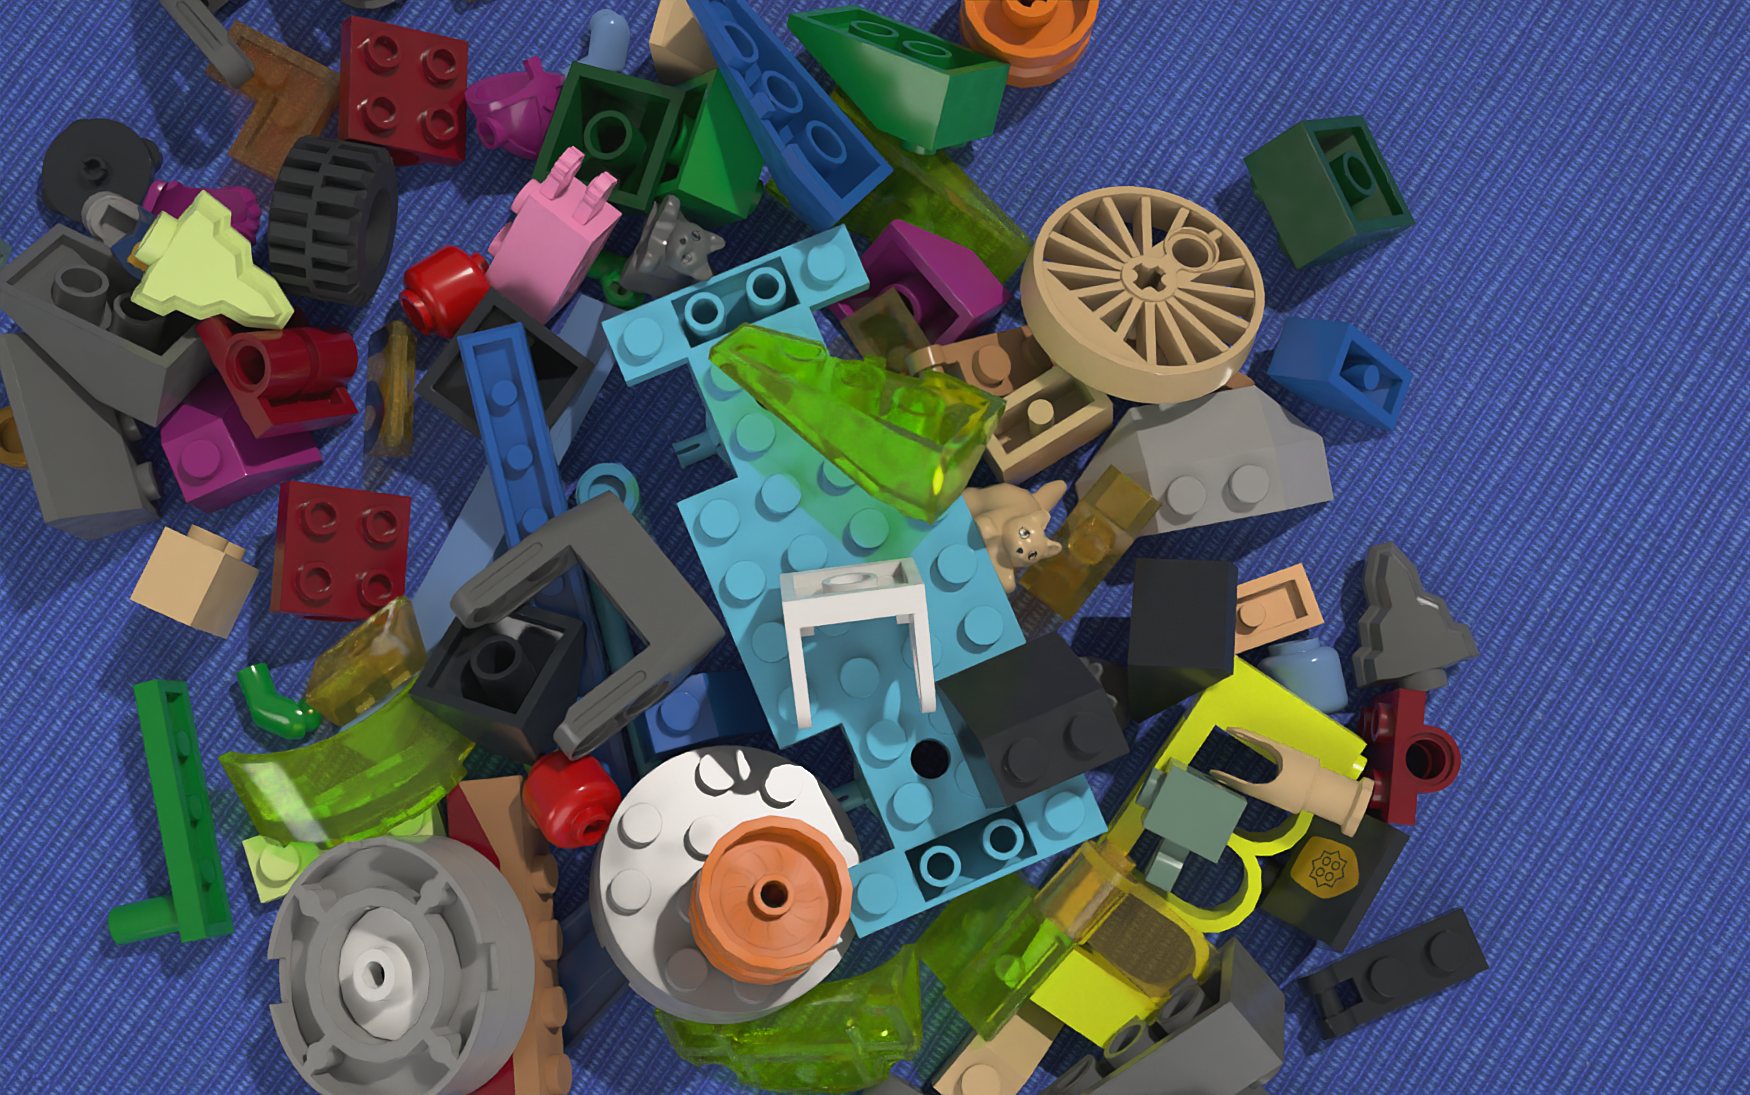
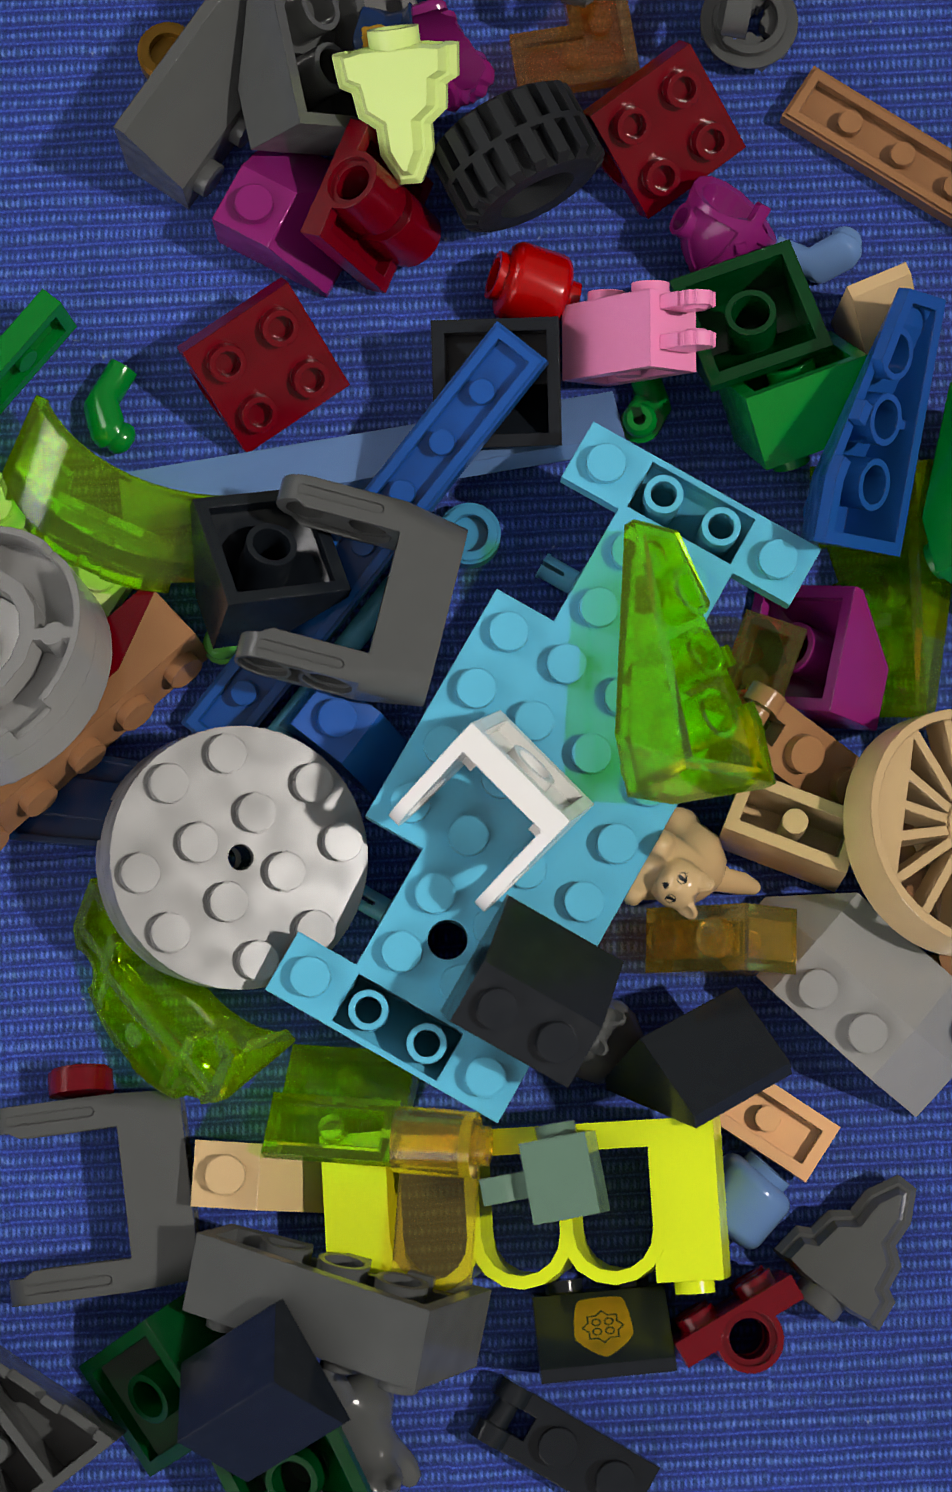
camera: 55 degrees right, 0 degrees up
(196, 580) = (158, 273): tan brick -> none
(367, 663) = (194, 451): clear yellow slope -> none
(390, 391) = (424, 300): clear yellow slope -> none
(570, 799) = (205, 686): red head -> none
(670, 252) = (693, 433): dark grey animal -> none
(798, 871) = (279, 898): orange wheel -> none
(1304, 784) = (651, 1251): tan piece -> none

